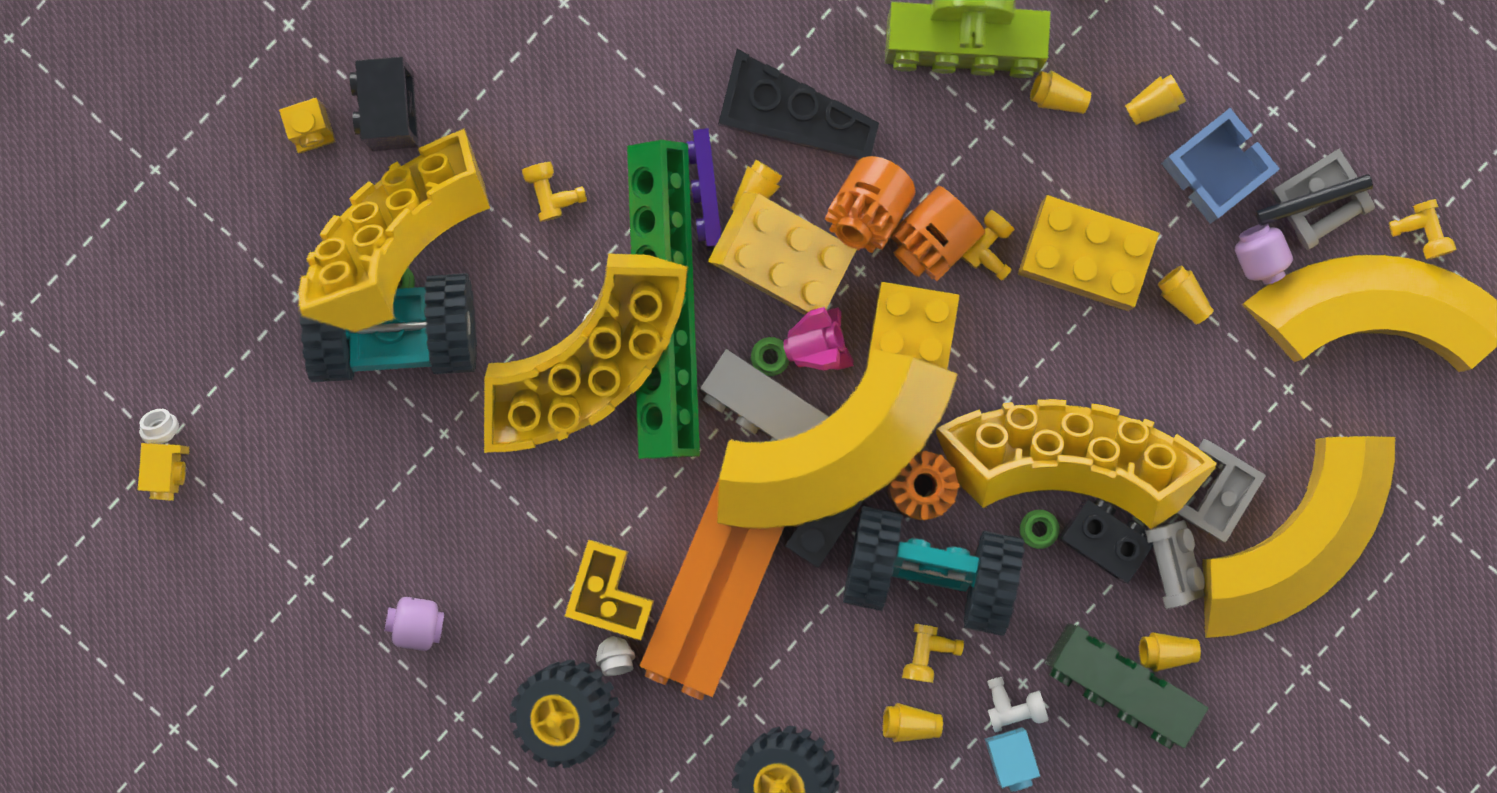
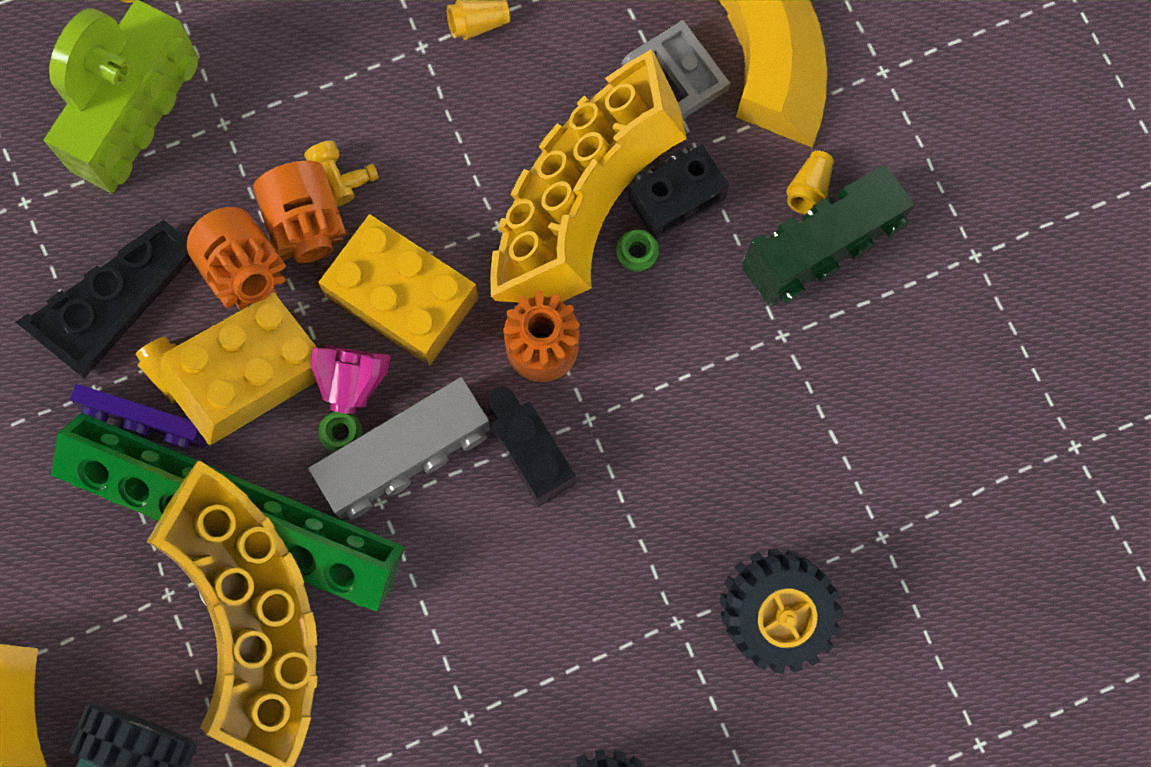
camera: 70 degrees left, 10 degrees down
(550, 203) = (33, 580): yellow piece -> none
(596, 595) = (503, 722): yellow brick -> none
(615, 656) = (571, 734): white plate -> none
(709, 603) = (537, 581): orange brick -> none
(841, 457) = (473, 399): yellow brick -> none
(910, 723) = (775, 460): yellow cone -> none
(925, 642) = (700, 409): yellow piece -> none
(989, 575) = (661, 315): black plate -> none
(1004, 714) = (804, 365): white piece -> none
(1012, 759) = (855, 374): medium azure brick -> none
(1059, 93) = (226, 44): yellow cone -> none
(1088, 253) = (392, 83): yellow brick -> none
(1177, 563) = (748, 135): light grey plate -> none

